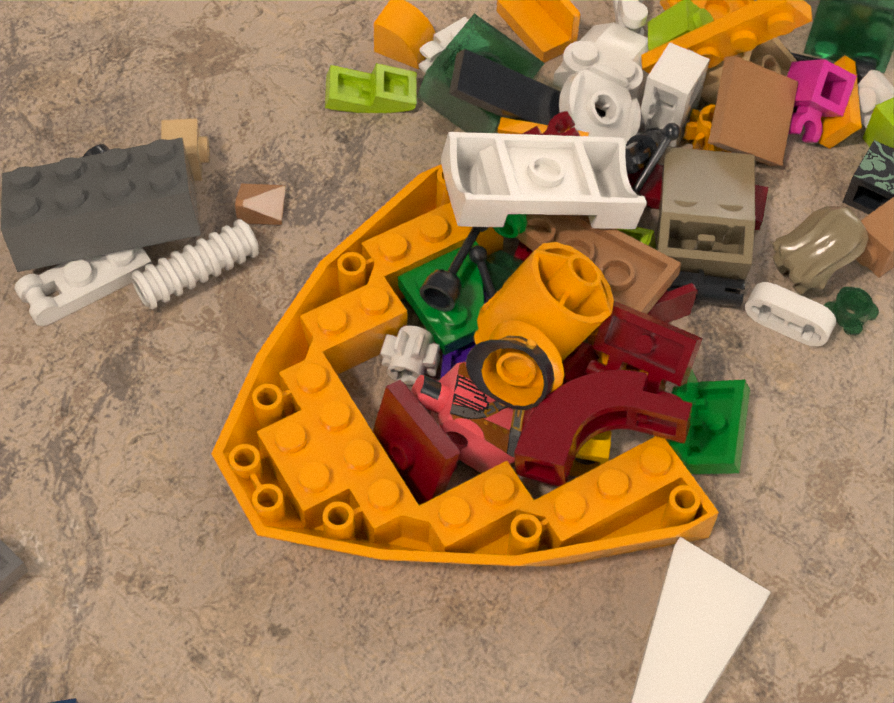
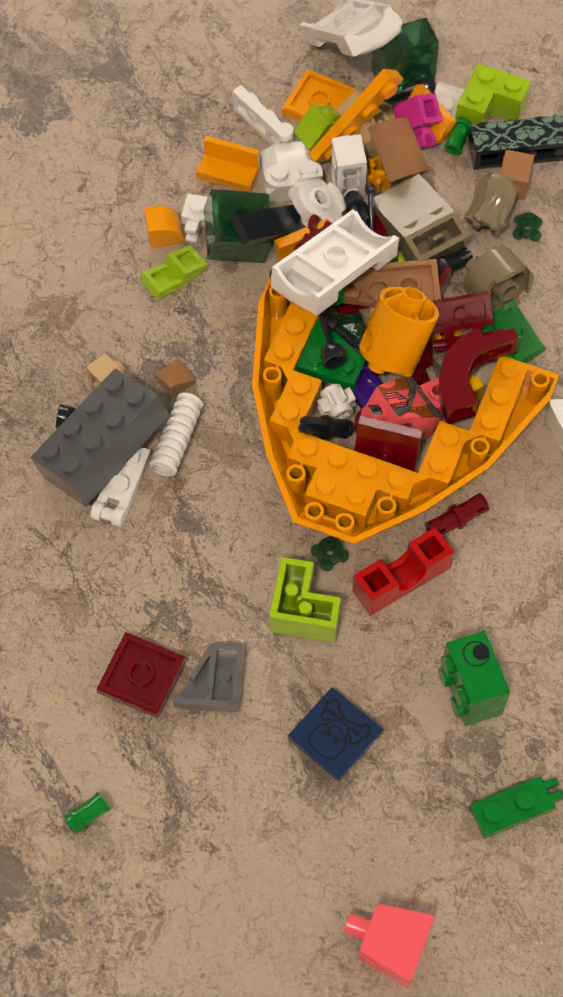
camera: 35 degrees left, 5 degrees up
(122, 561) = (299, 611): none -> lime brick
(225, 520) = (329, 544): none -> clear green plate
(254, 617) = (422, 561): none -> red arch
(361, 369) = (326, 427): none -> black axle
(433, 601) = (458, 515): none -> dark red pin
(516, 365) = (412, 367): light orange piece -> none
(746, 339) = (500, 274): none -> dark tan brick
(790, 314) = (517, 244): white beam -> none
(851, 148) = (458, 136): none -> green pin

